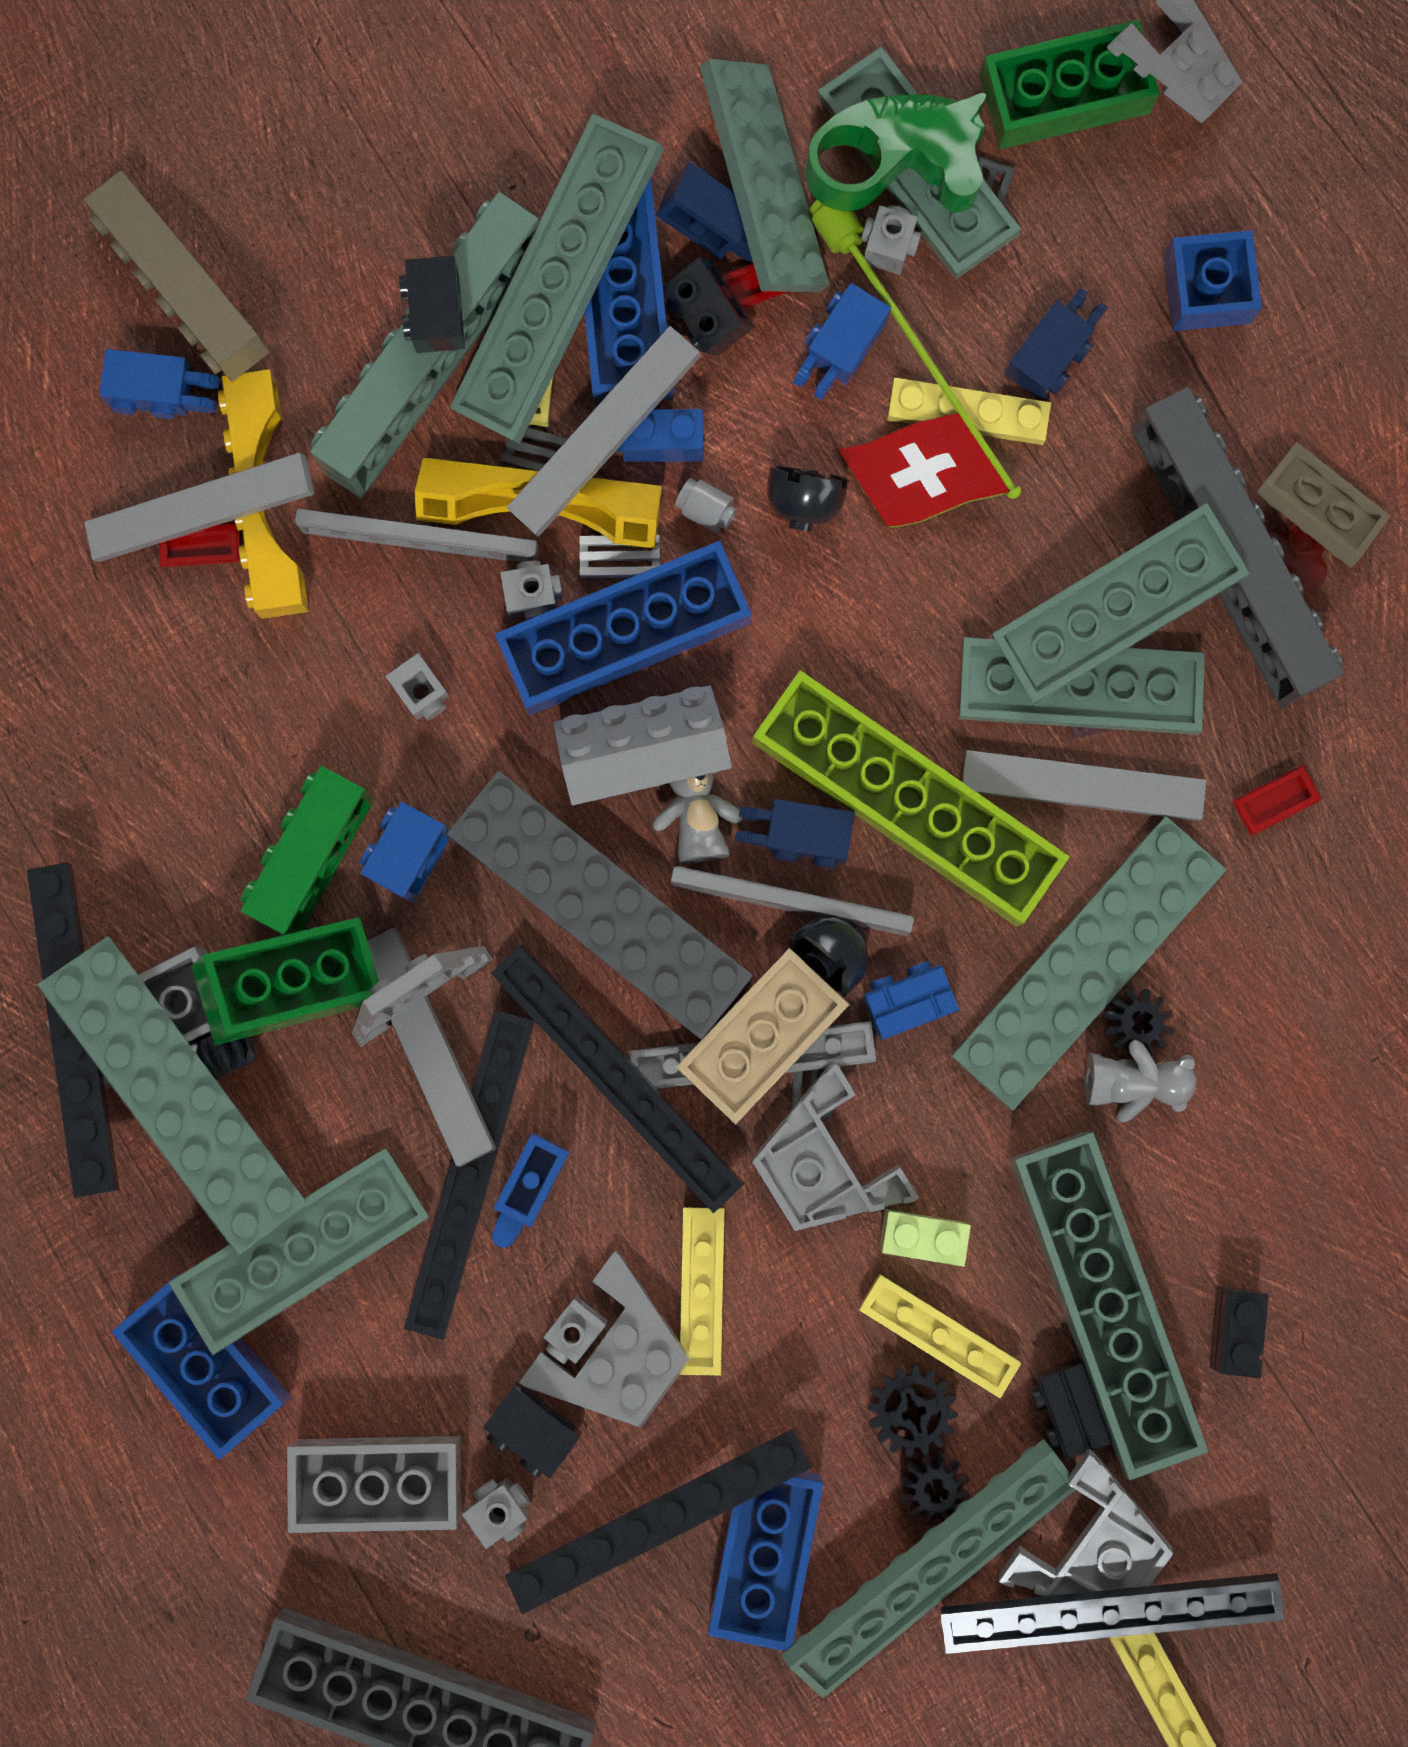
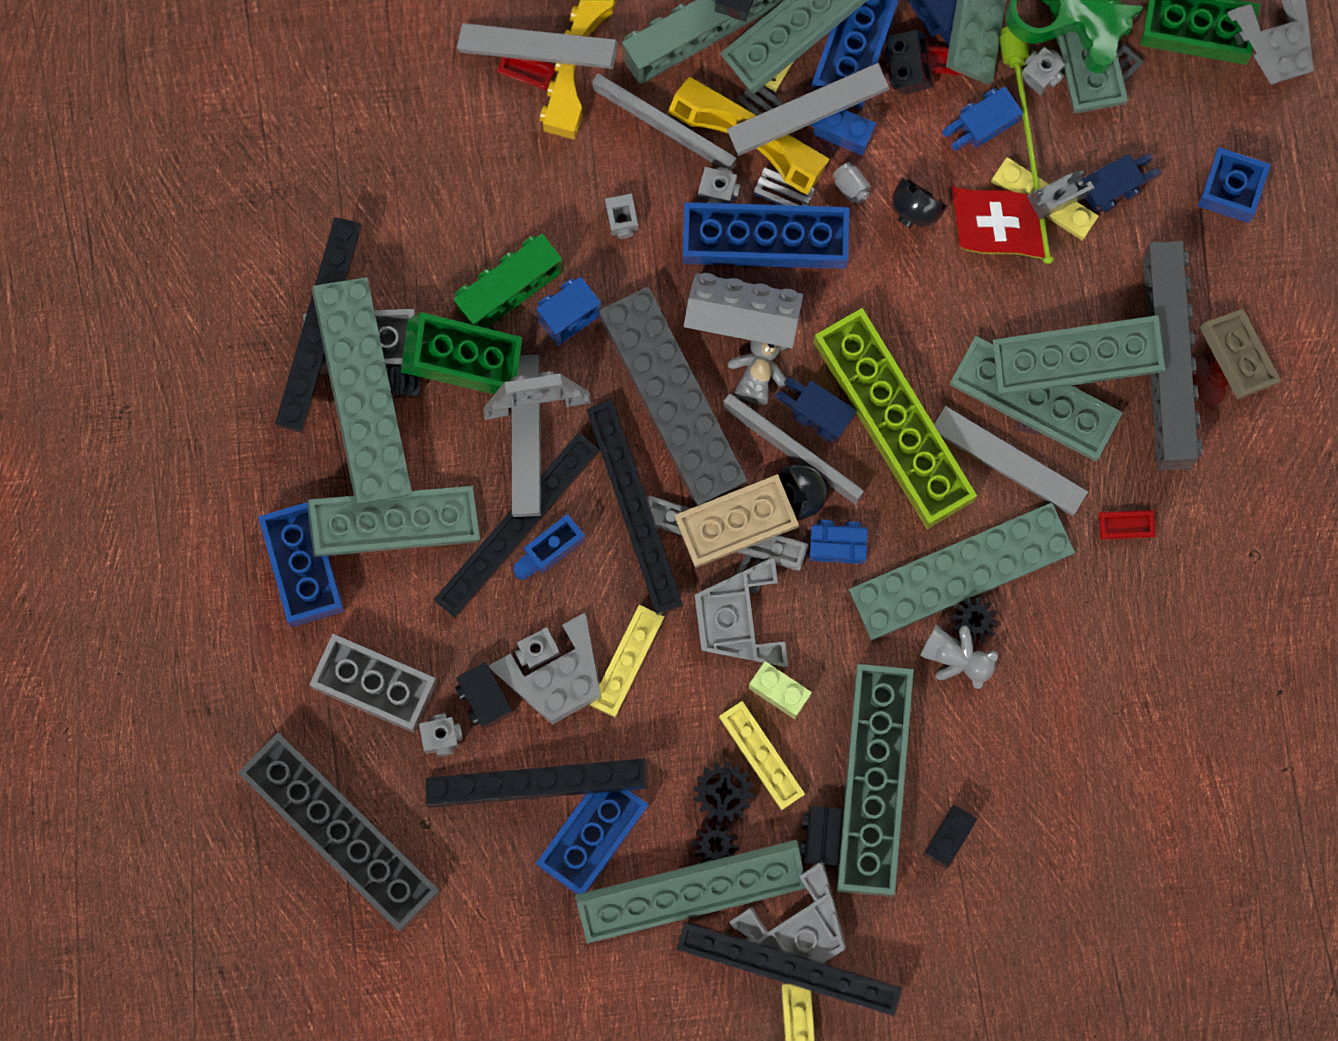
camera: 25 degrees right, 5 degrees down
(990, 395) = (1059, 194): none -> dark grey hinge

